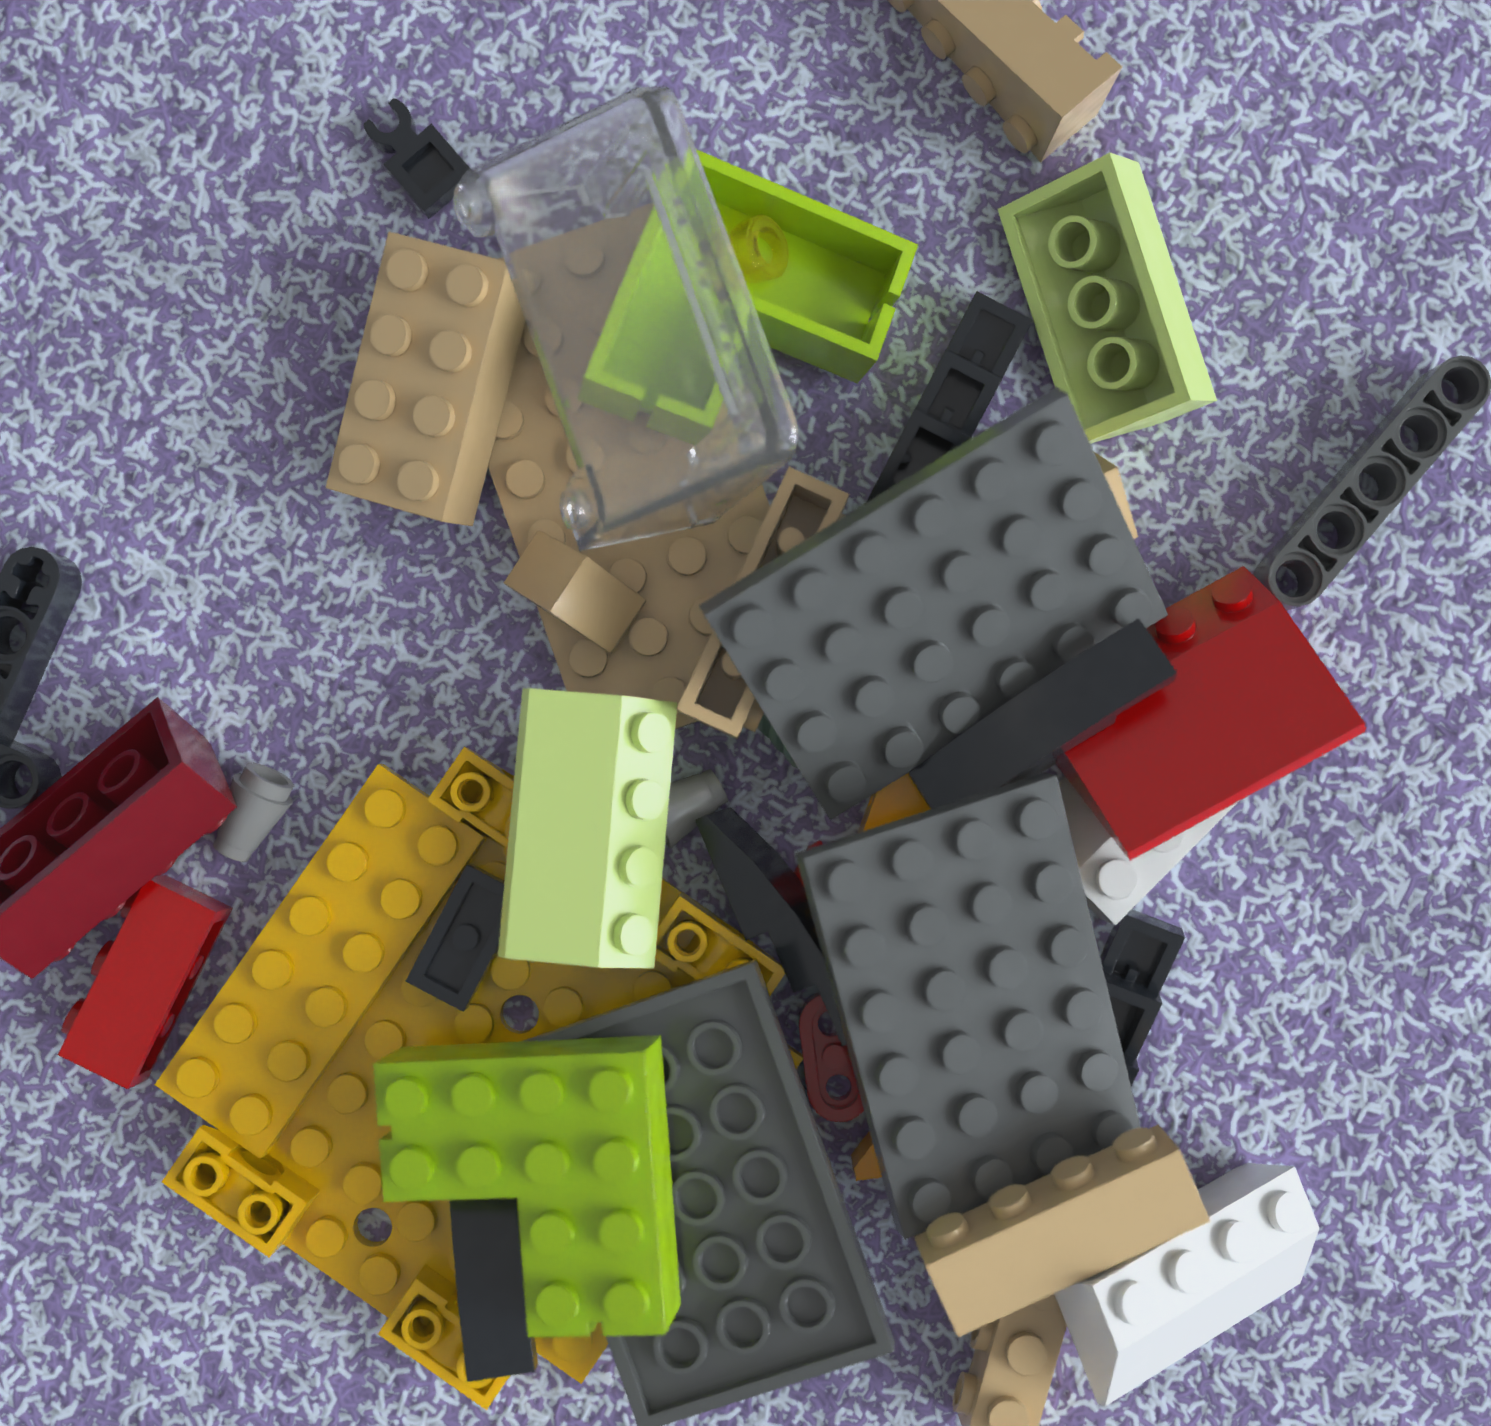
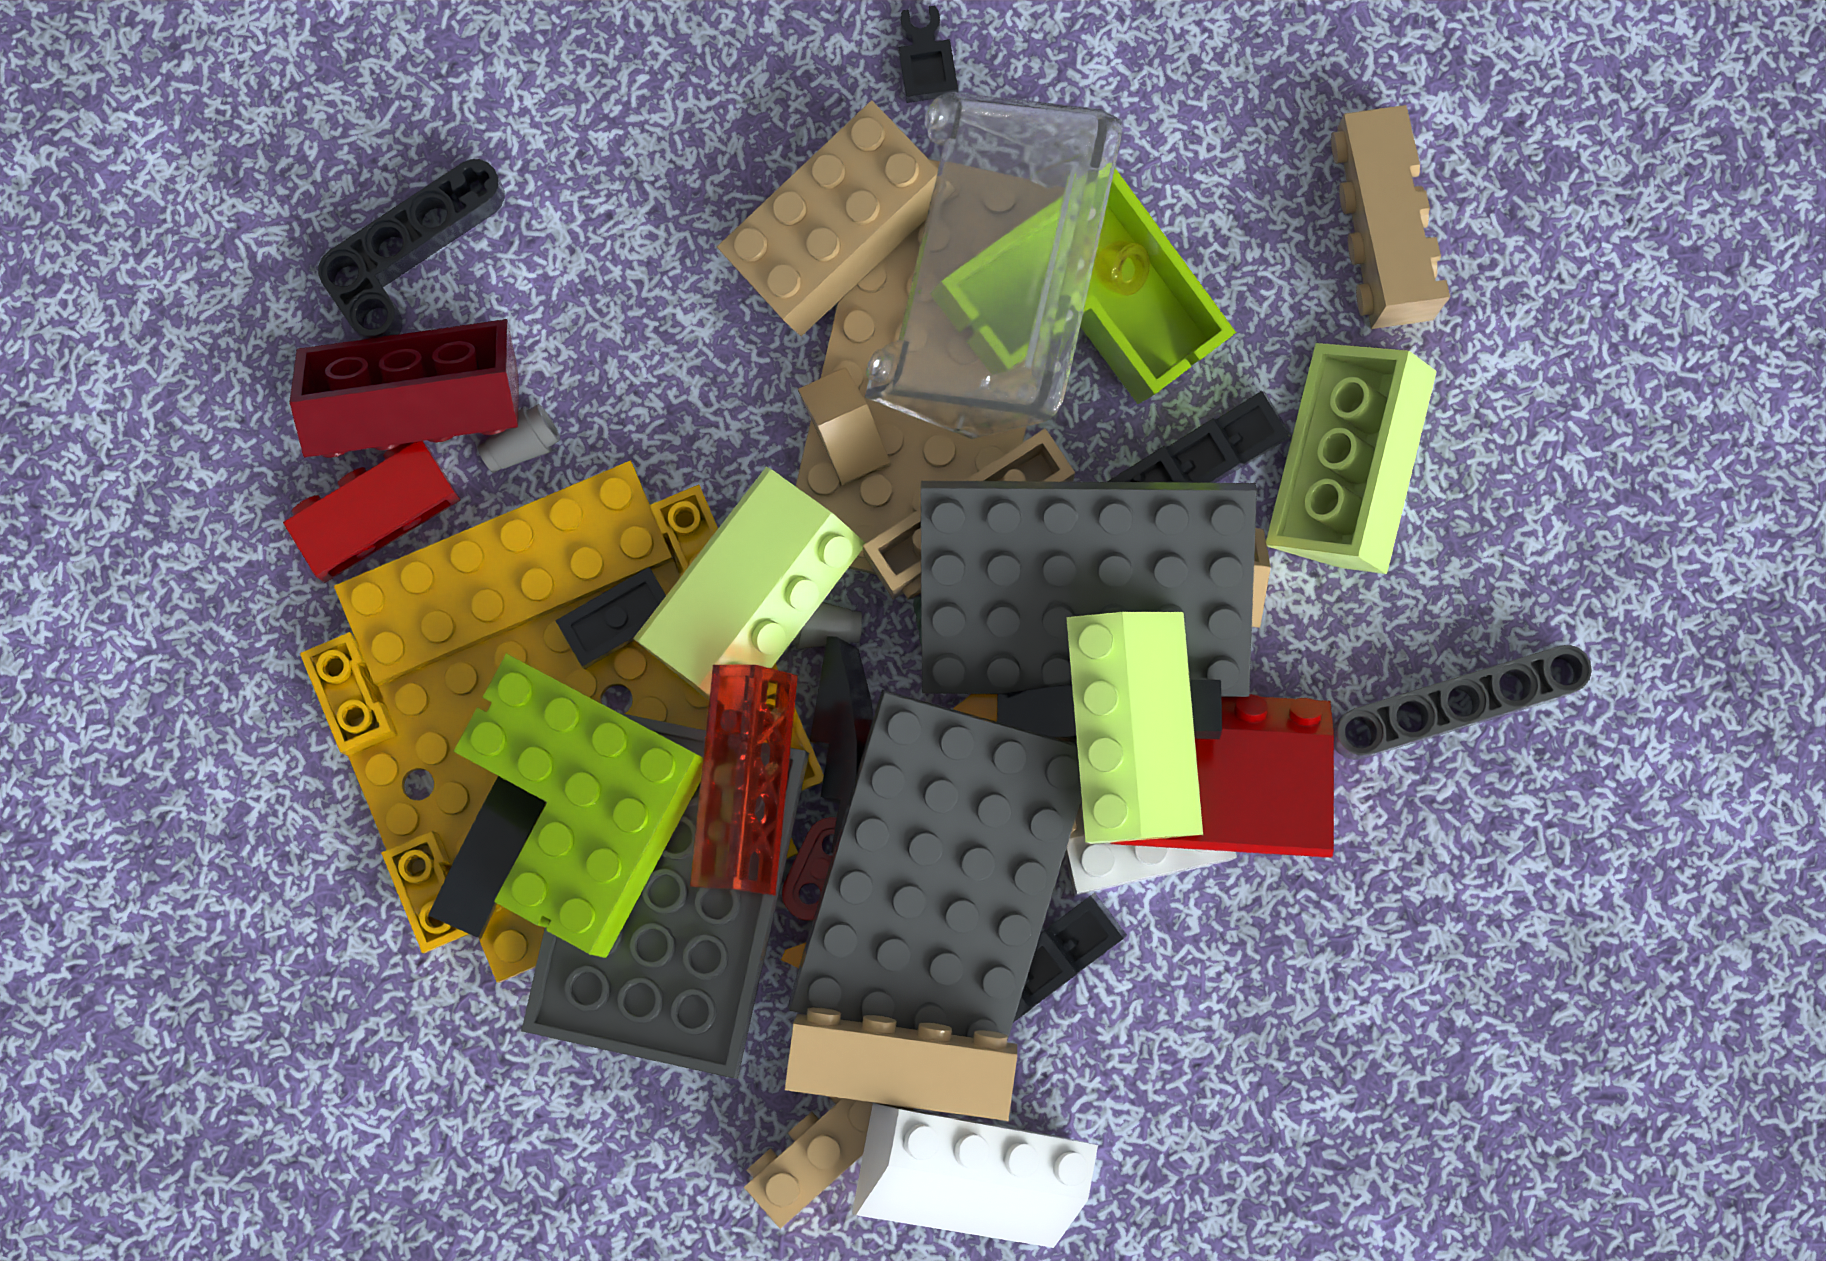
camera: 35 degrees right, 5 degrees down
(703, 1045) = (736, 778): none -> clear red fence
(1090, 729) = (1134, 726): none -> yellowish green slope

